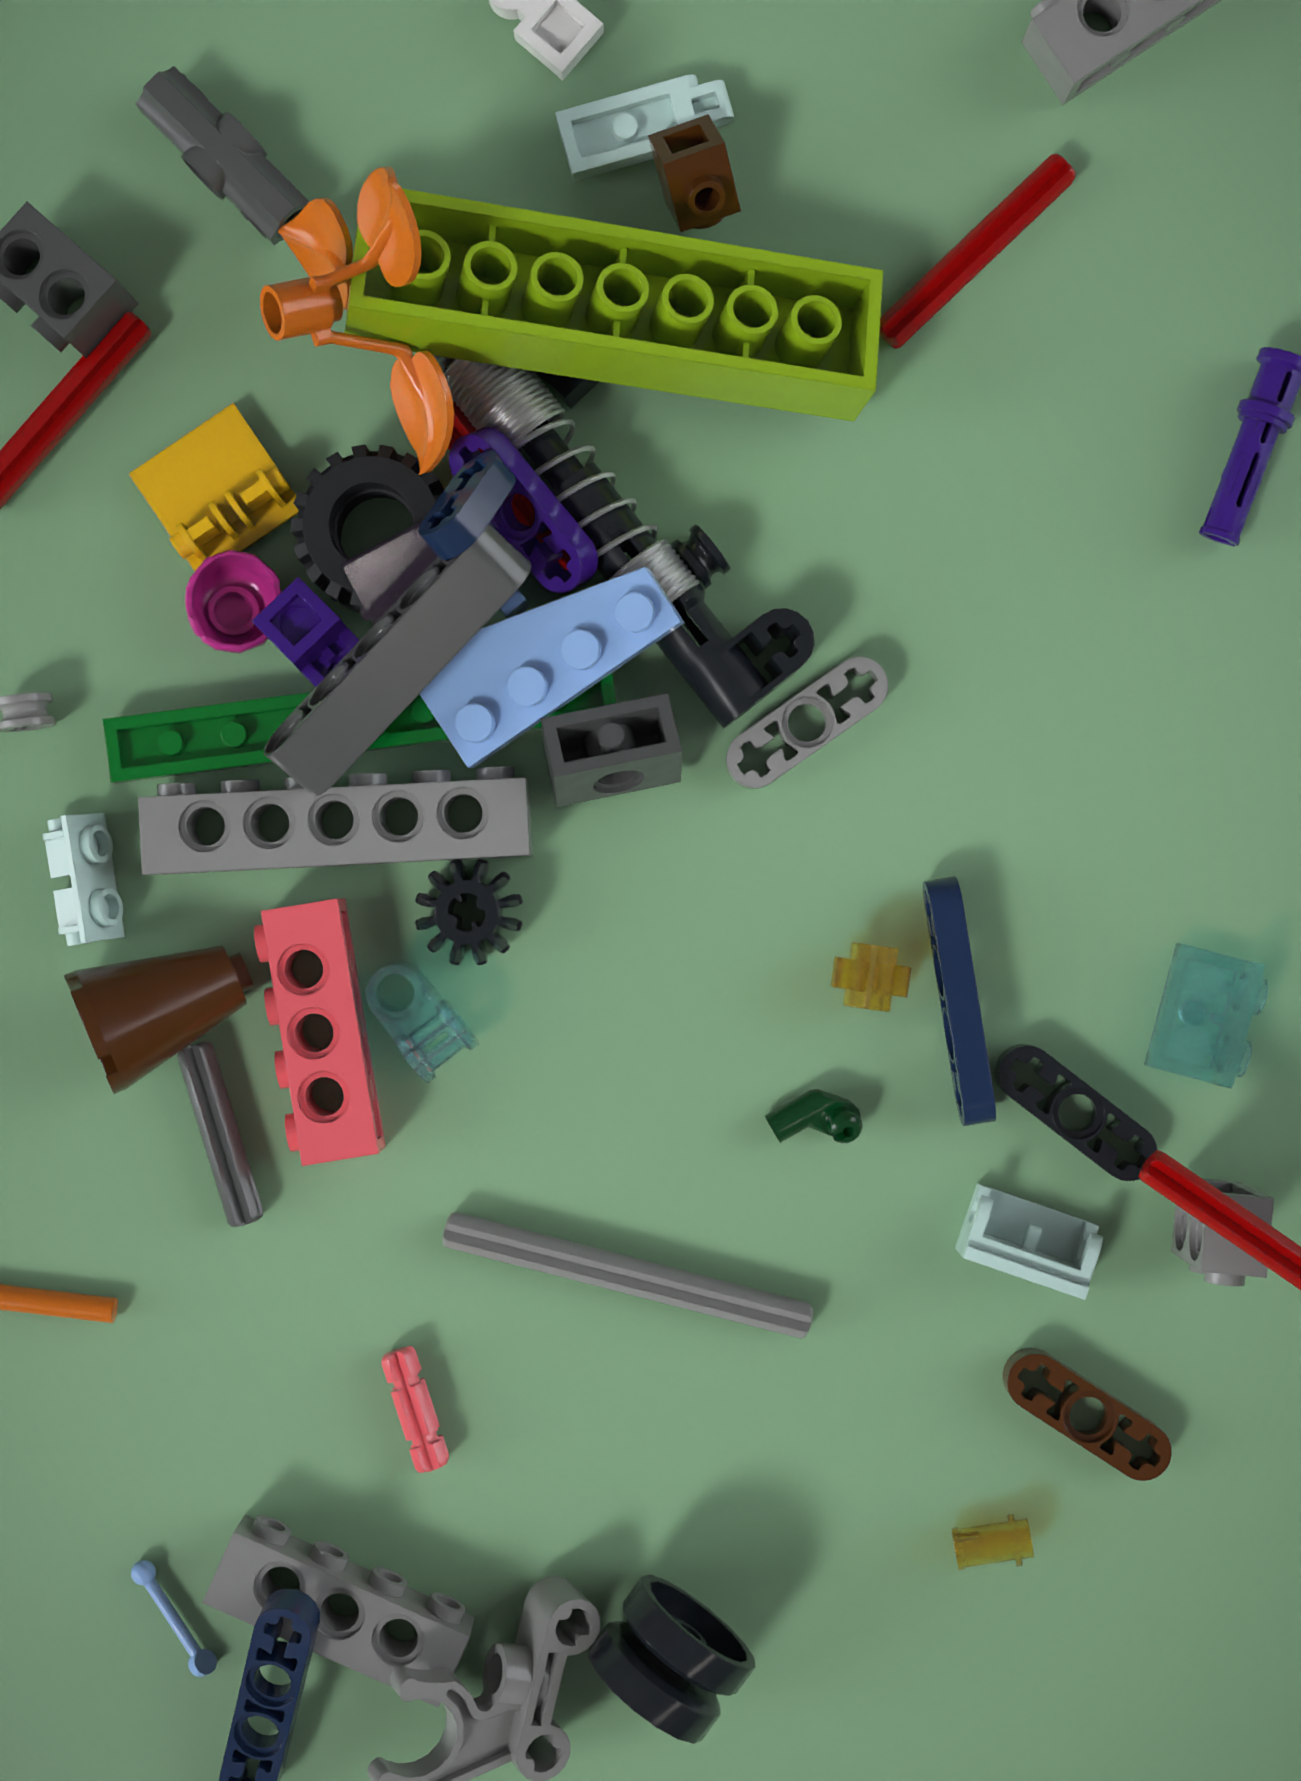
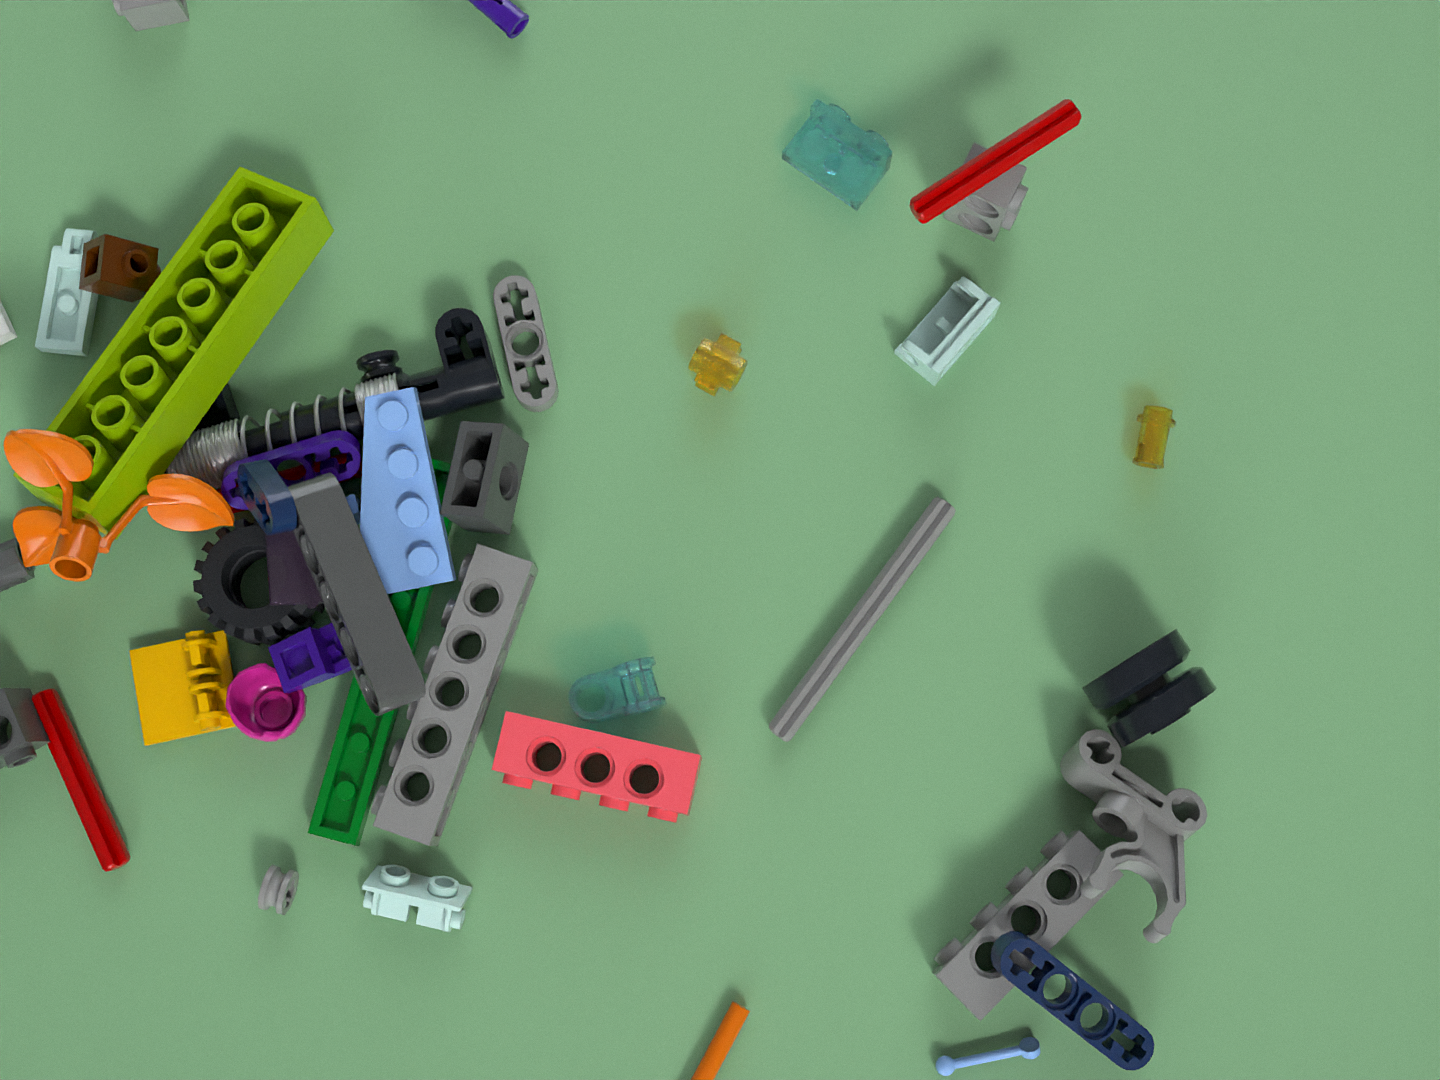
camera: 60 degrees left, 10 degrees down
(155, 1007) = (529, 879): reddish brown cone -> none
(220, 1134) = (643, 872): dark grey axle -> none
(415, 1409) = (900, 810): coral axle -> none
(450, 923) = (557, 608): black gear -> none
(818, 1111) = (800, 439): dark green arm -> none
(959, 1001) = (760, 313): dark blue beam -> none
(976, 250) = (257, 107): red axle -> none
(1048, 1070) = (905, 260): black beam -> none
(1115, 1453) = (1104, 308): reddish brown beam -> none

